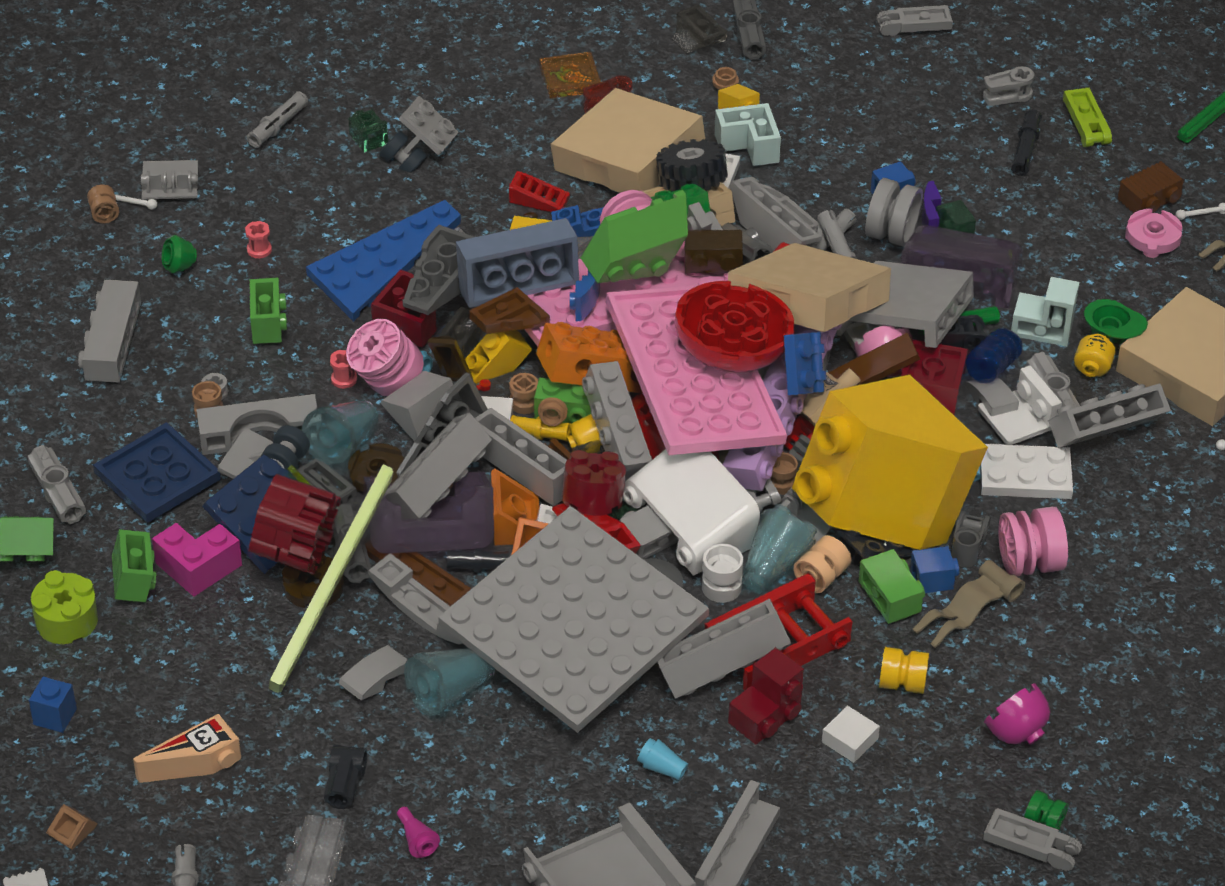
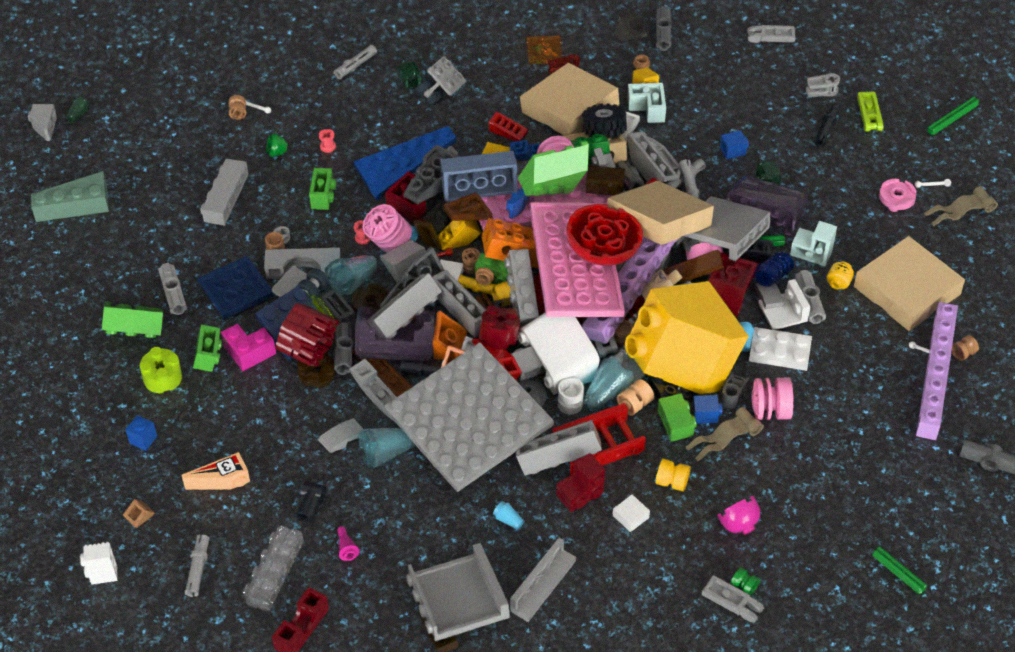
camera: 10 degrees right, 5 degrees up
(169, 179) = (281, 95): light grey hinge -> none
(331, 579) = (322, 373): yellowish green tile -> none
(804, 363) = (641, 267): blue plate -> none
(893, 211) = (728, 164): light grey wheel -> none
(931, 200) = (756, 158): dark purple slope -> none
(1108, 415) = (840, 318): light grey brick -> none
(1114, 320) = (857, 253): green piece -> none
(1150, 188) = (901, 164): reddish brown brick -> none

